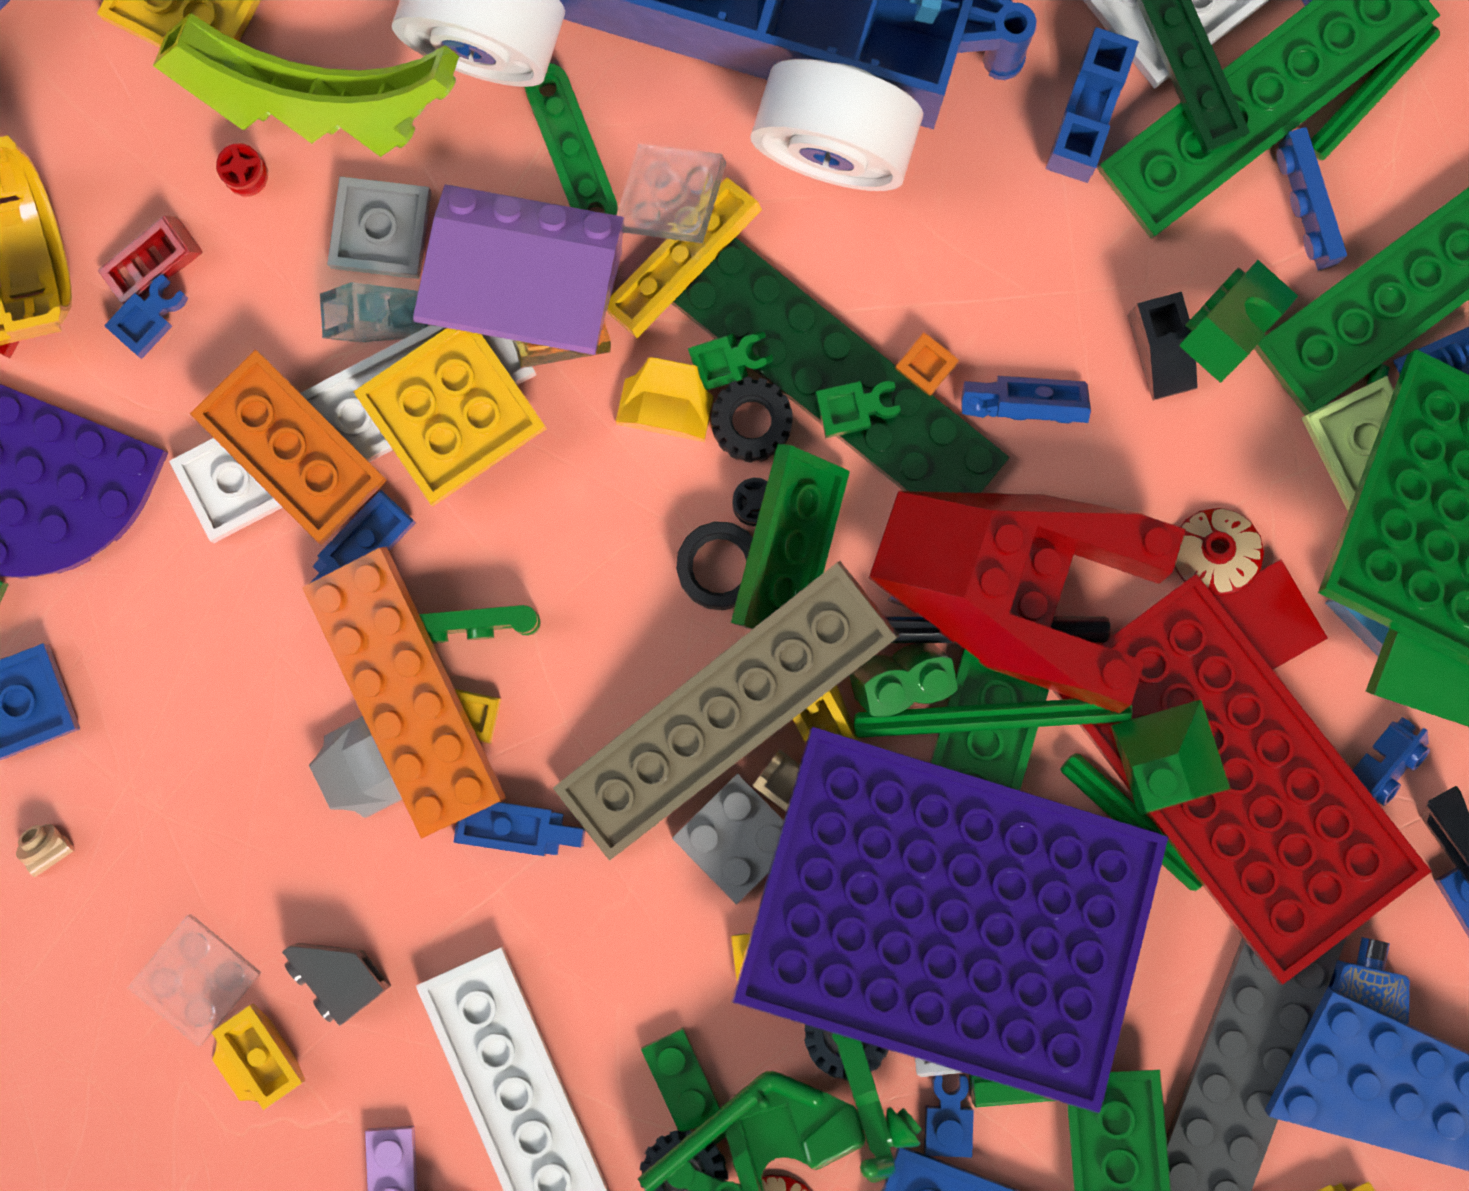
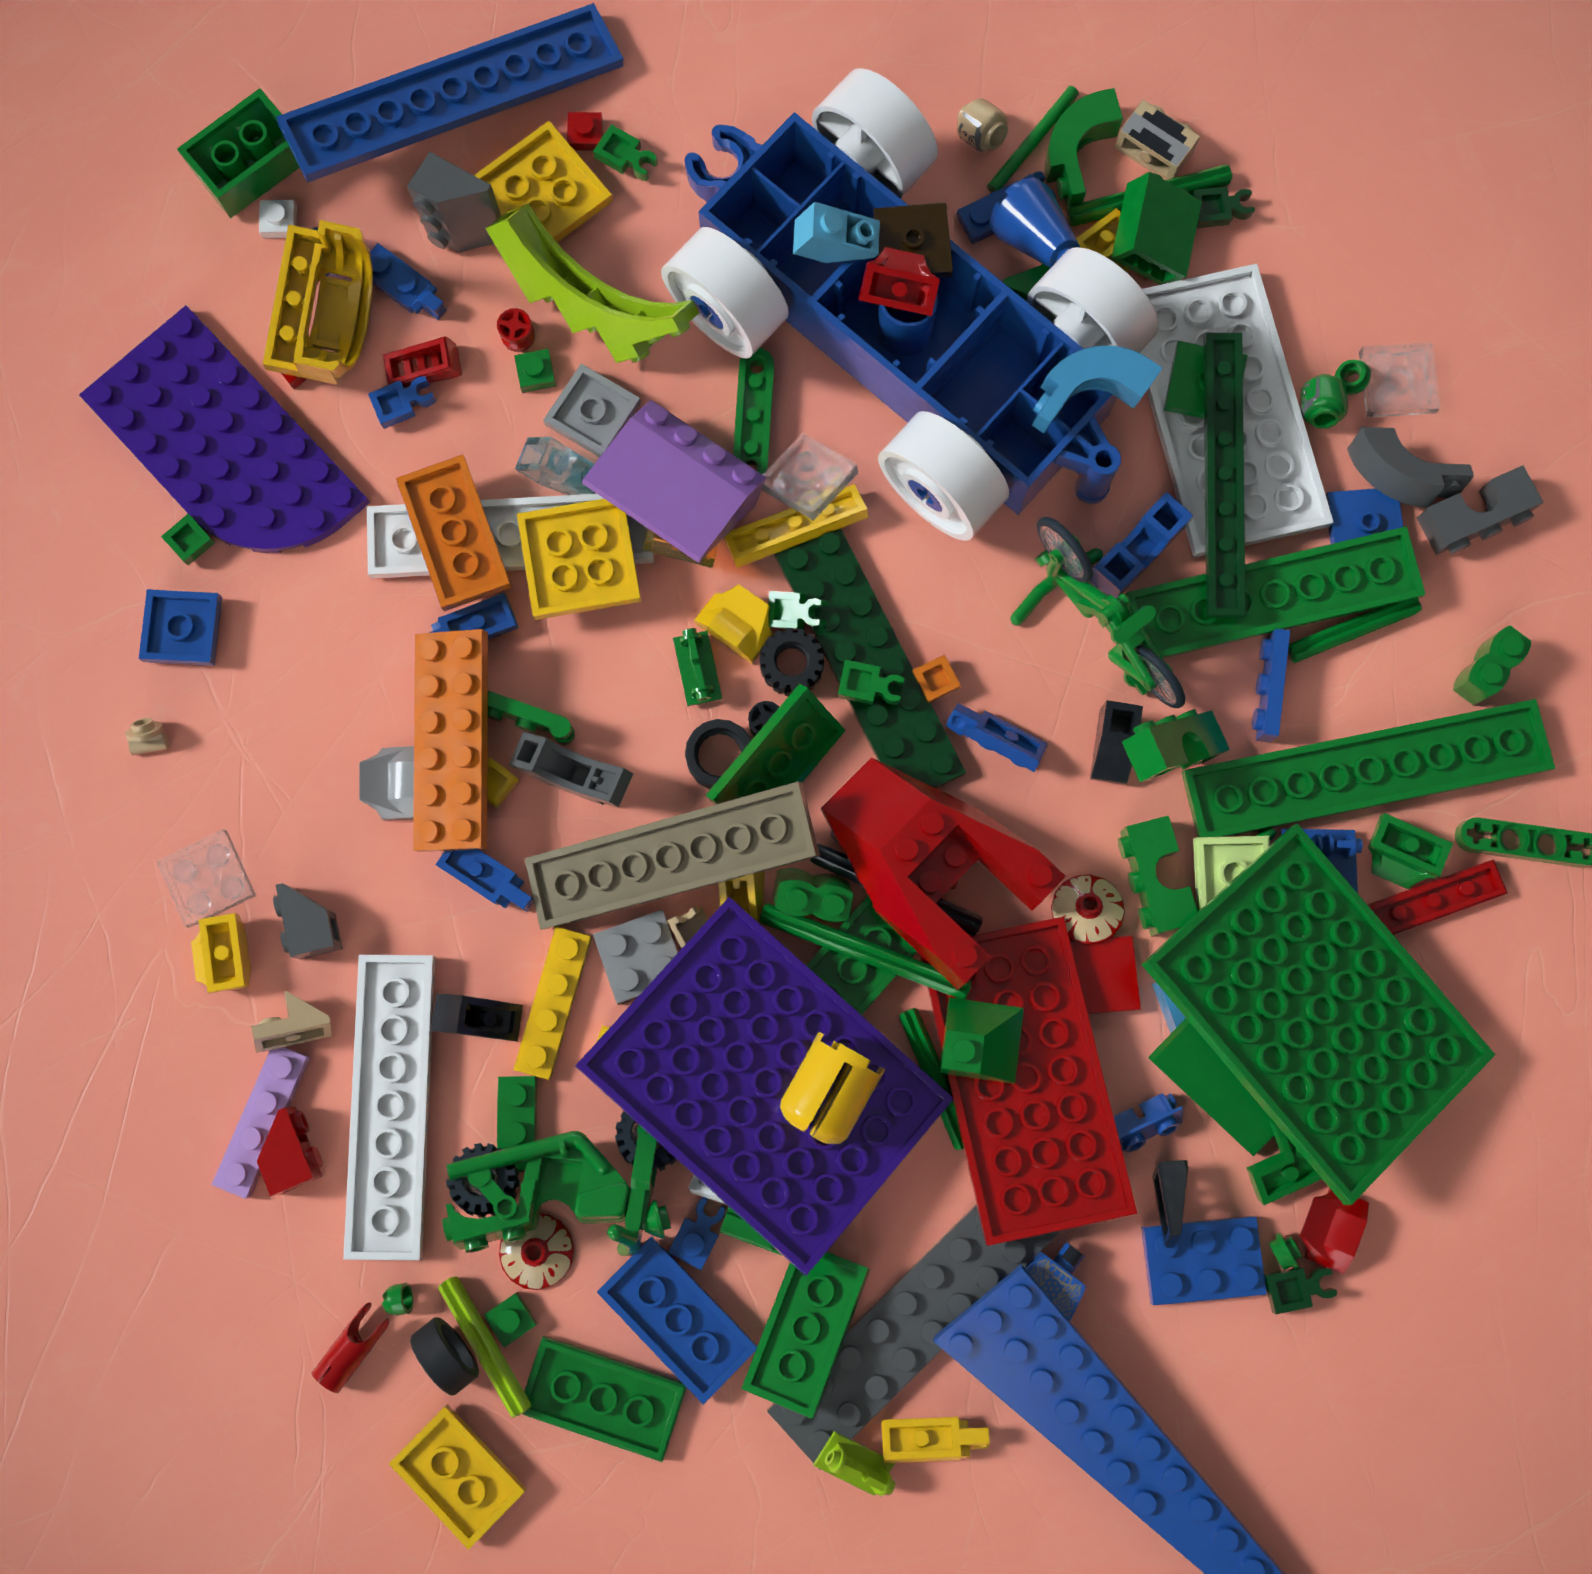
camera: 25 degrees right, 5 degrees down
(82, 172) = (404, 283): none -> blue hinge
(99, 53) = (453, 205): none -> dark grey slope
(287, 208) = (535, 370): none -> green plate
(390, 1095) = (302, 1026): none -> tan slope
(559, 663) = (570, 770): none -> dark grey arch
(584, 994) = (476, 1017): none -> black slope
(645, 475) = (697, 667): none -> green hinge
(662, 937) = (552, 1003): none -> yellow plate
(1033, 897) = (843, 1102): none -> yellow cylinder
(1037, 171) = (1071, 570): none -> green piece
(1251, 453) = (1162, 907): none -> green arch

